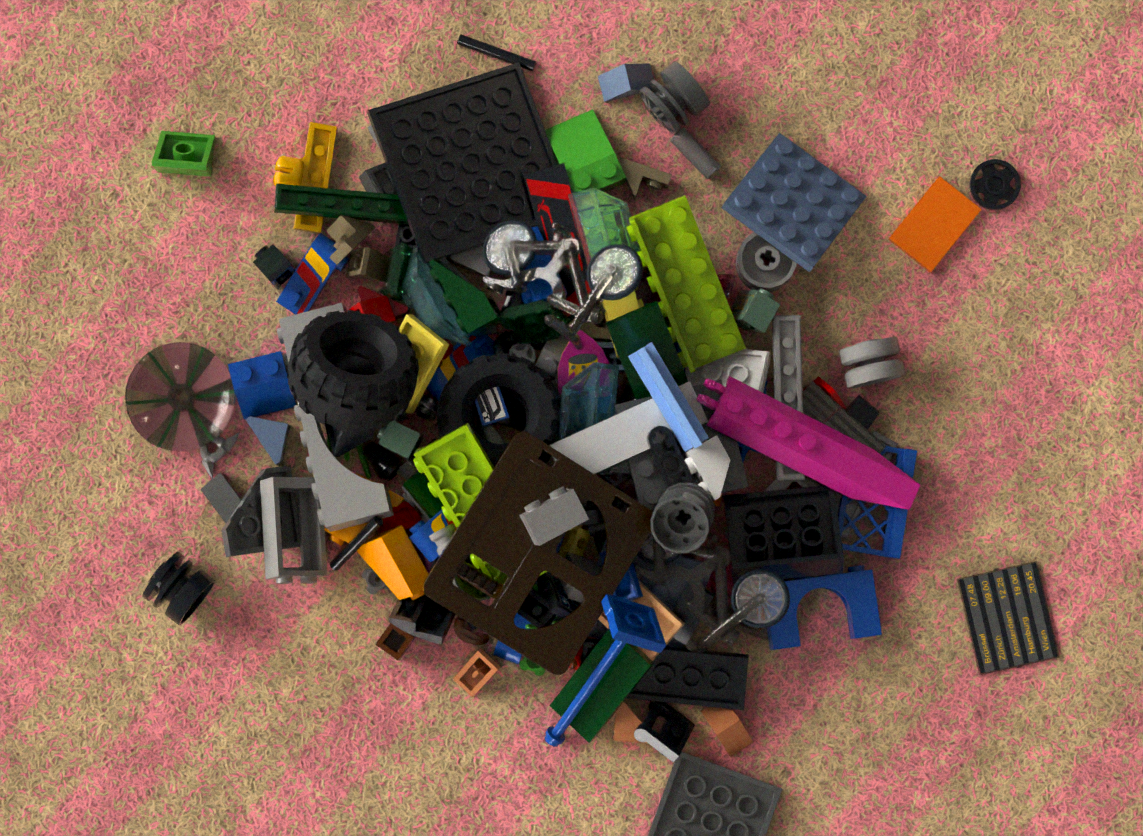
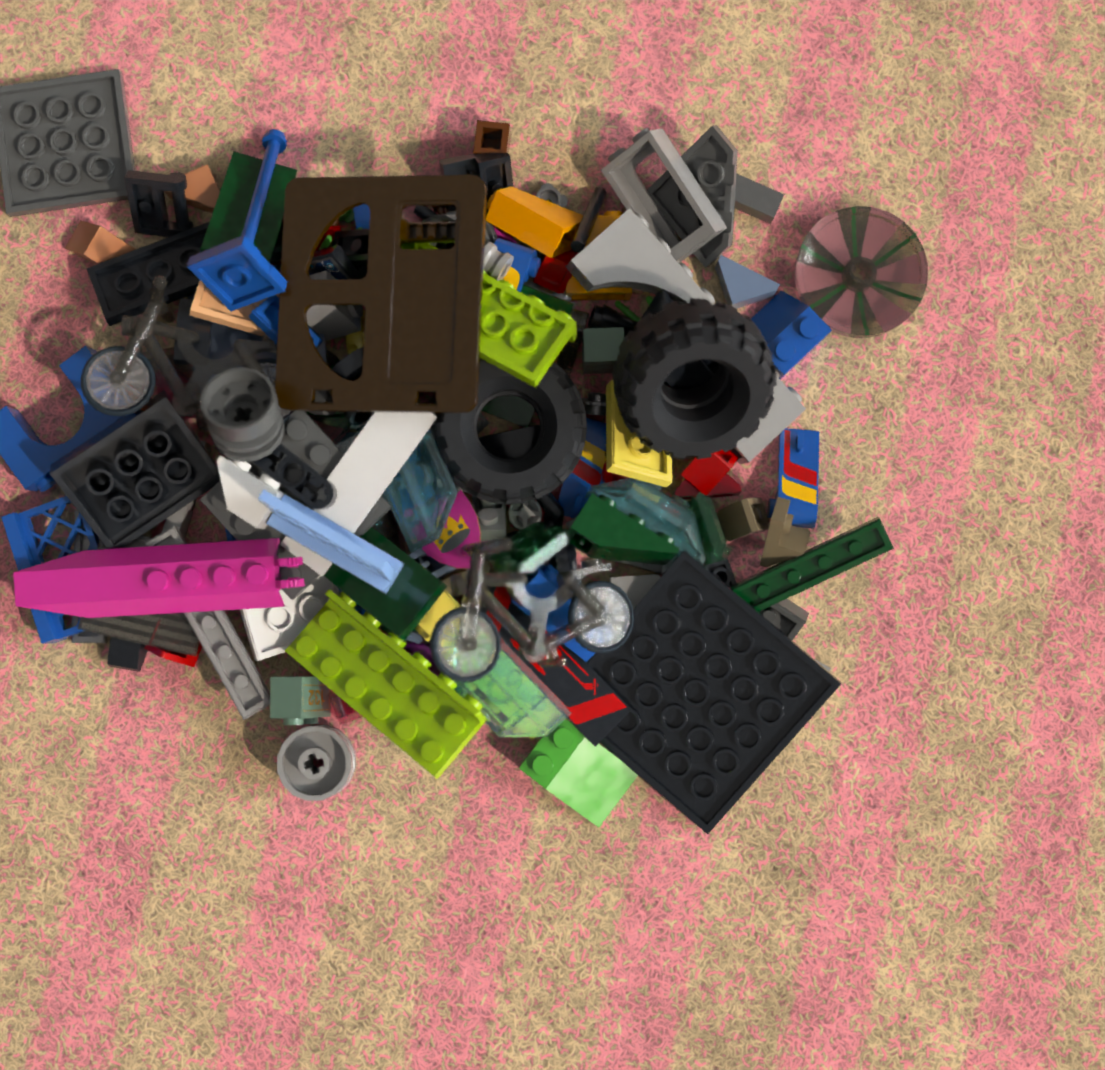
camera: 150 degrees right, 0 degrees up
(178, 588) = (748, 74): black wheel -> none
(184, 153) = (1009, 533): bright green slope -> none
(223, 447) = (786, 250): light grey piece -> none
(274, 265) = (844, 463): black slope -> none
(309, 171) = (862, 589): yellow plate -> none
(476, 672) = (389, 158): nougat slope -> none
(491, 407) = (523, 430): tile -> none
(496, 52) = (738, 832): black bar -> none
(553, 516) = (384, 335): light grey brick -> none
(625, 81) = (578, 879): sand blue slope -> none
(637, 172) = (511, 781): dark tan slope -> none
(678, 94) = (516, 883): dark grey wheel -> none
(697, 148) = (440, 842): light grey piece -> none
(794, 202) = (319, 843): sand blue plate -> none
(871, 358) = (139, 712): light grey wheel -> none
(934, 224) = (155, 907): orange tile -> none
(995, 184) = (111, 989): black wheel -> none

